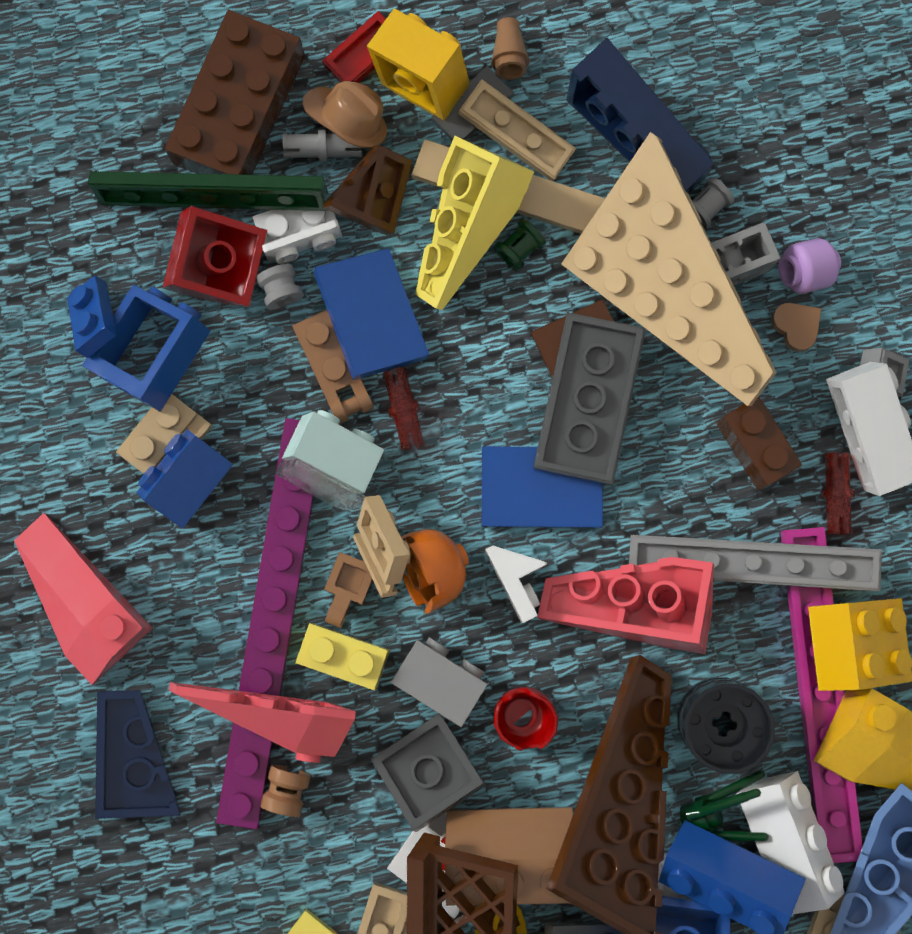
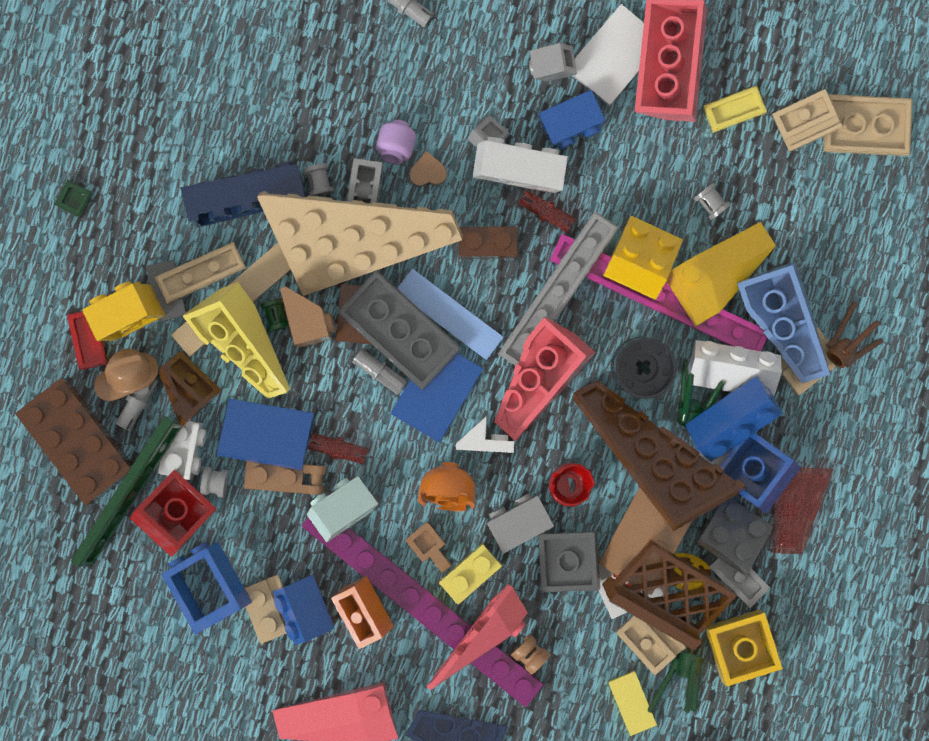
camera: 60 degrees left, 5 degrees up
(91, 316) = (166, 611): blue plate -> none
(220, 551) = (362, 612): none -> orange brick
(320, 485) = (357, 528): clear tile -> none
(381, 545) = (416, 512): tan plate -> none
(509, 51) = (144, 246): medium nougat cone -> none
(525, 405) = (379, 371): none -> light grey axle
(536, 279) = (306, 319): none -> medium nougat slope
(643, 451) = (450, 314): none -> light blue tile

